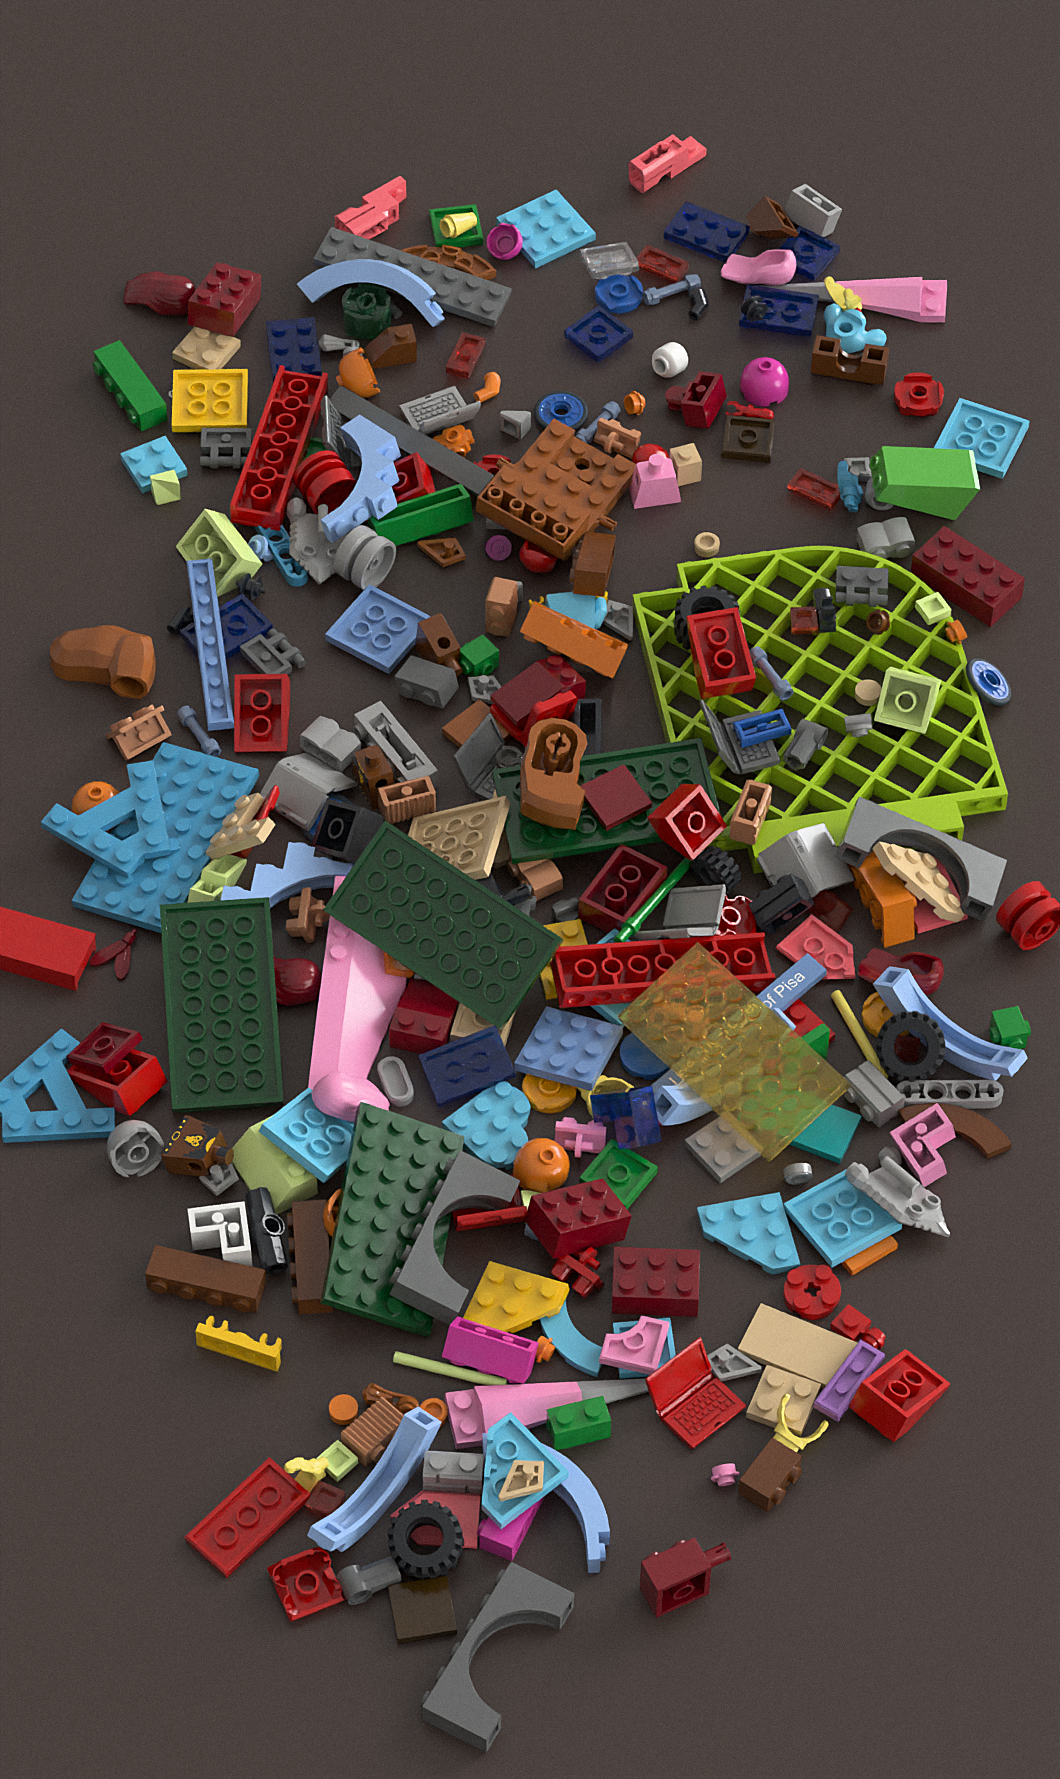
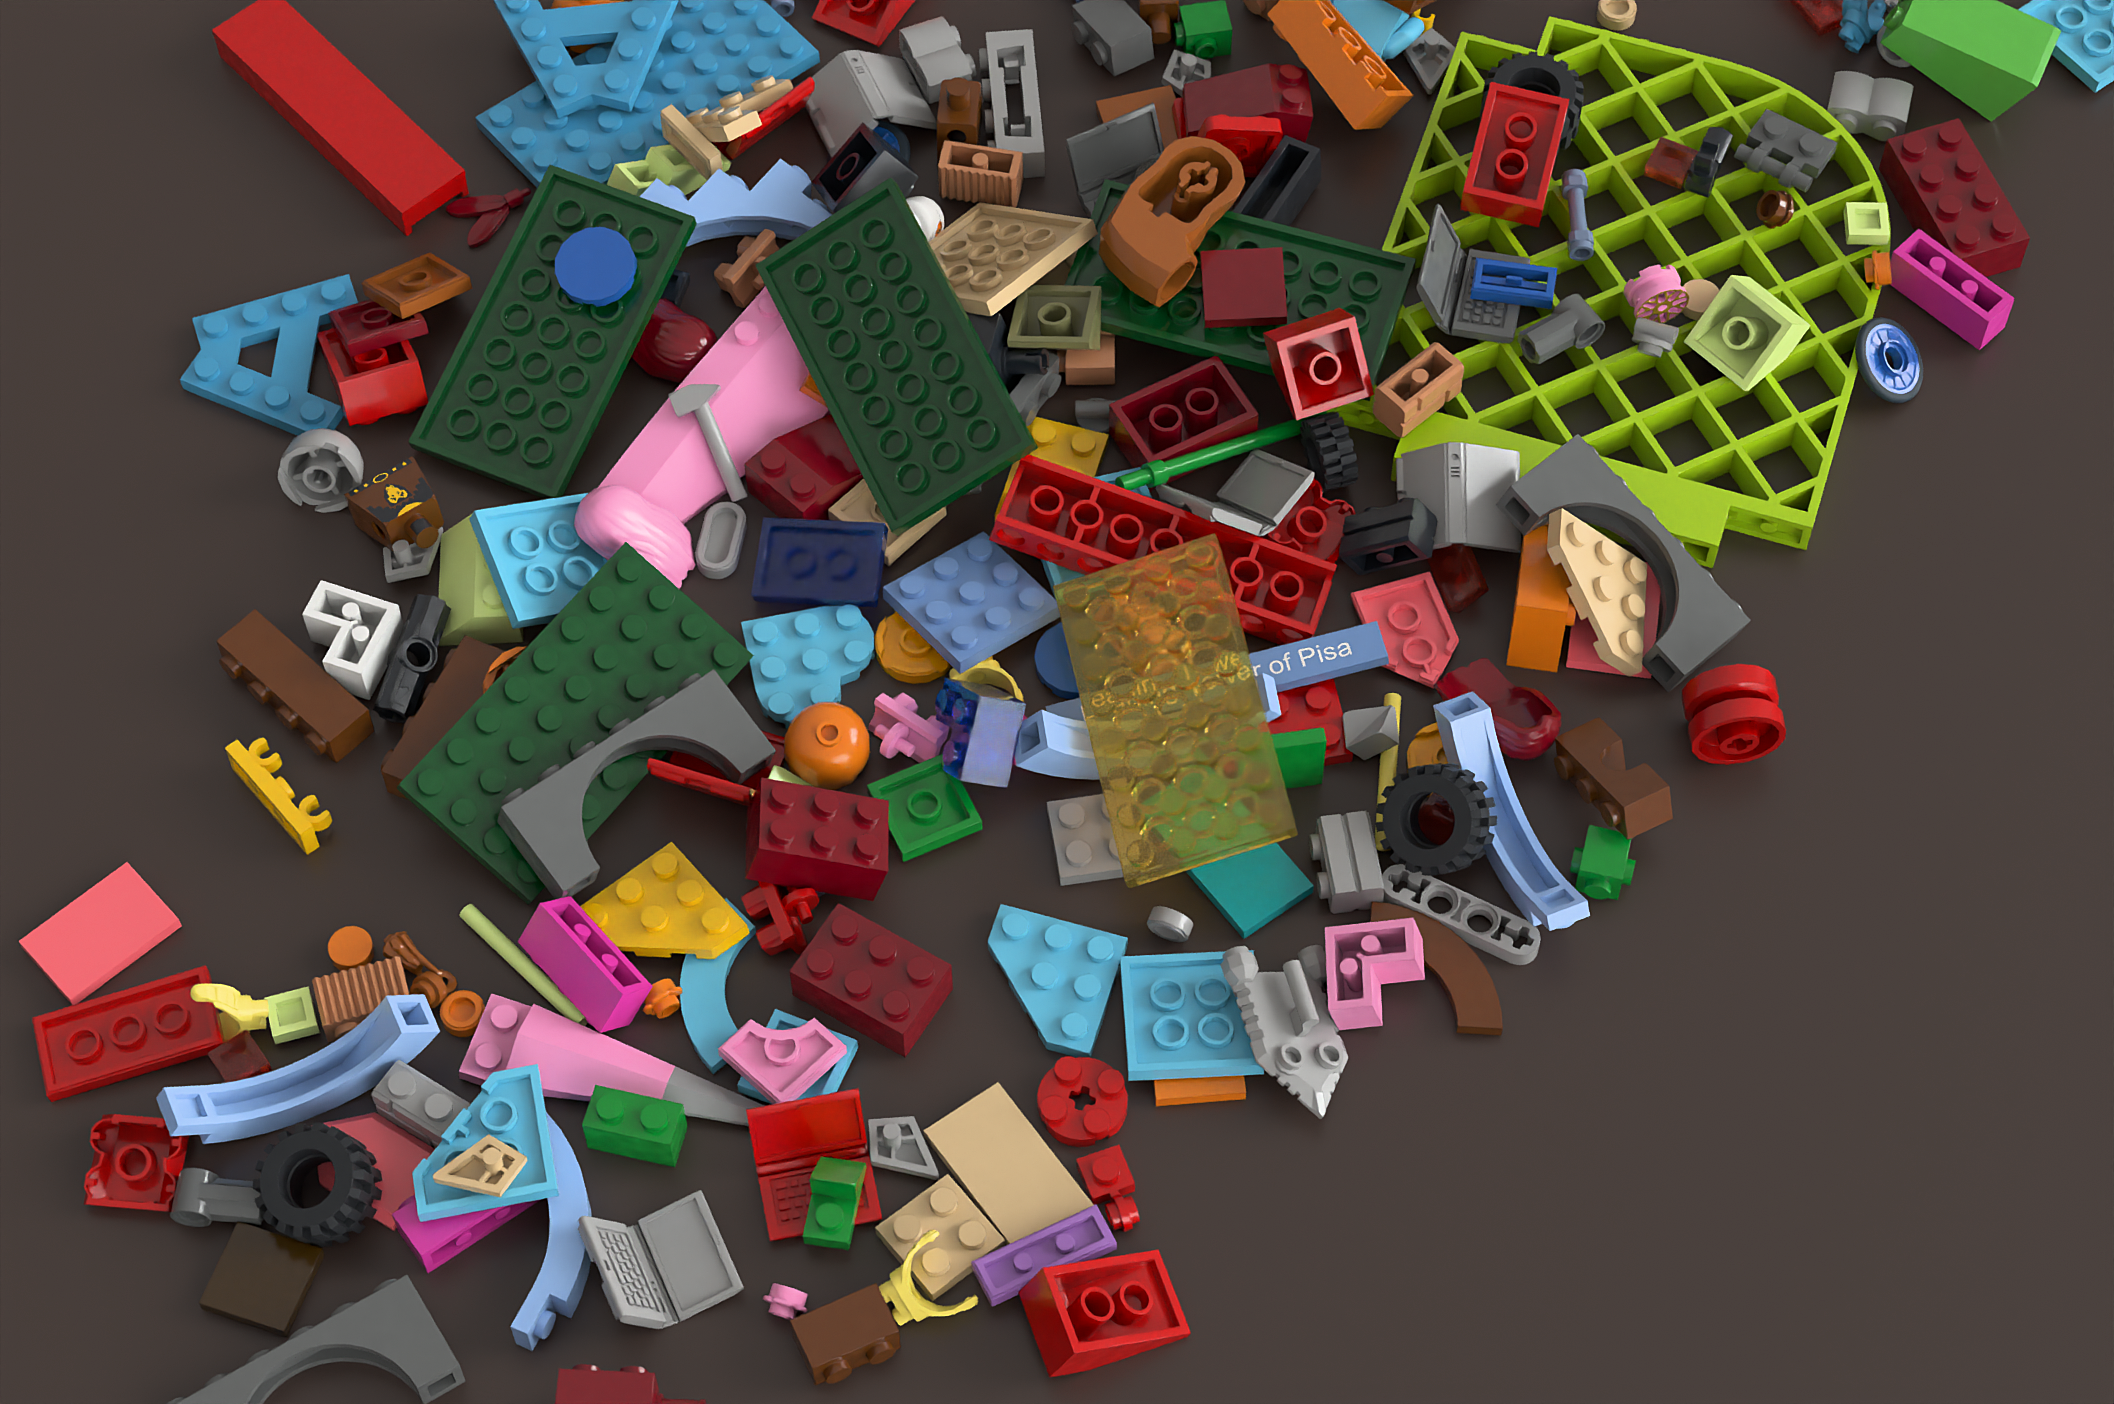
camera: 30 degrees right, 5 degrees up
(112, 1015) = (416, 285): none -> dark orange tile
(188, 1472) = (100, 933): none -> coral tile
(227, 856) = (690, 142): none -> tan tile
(228, 952) = (595, 266): none -> blue tile
(338, 1004) = (695, 399): none -> light grey piece
(520, 862) = (1057, 318): none -> olive slope
(646, 1485) = (663, 1265): none -> light grey piece
(716, 1409) = (833, 1202): none -> green slope
(838, 1016) = (1370, 730): none -> light grey slope
(846, 699) = (1657, 294): none -> bright pink wheel
(970, 978) = (1595, 764): none -> reddish brown arch
(998, 626) = (1950, 289): none -> dark pink brick

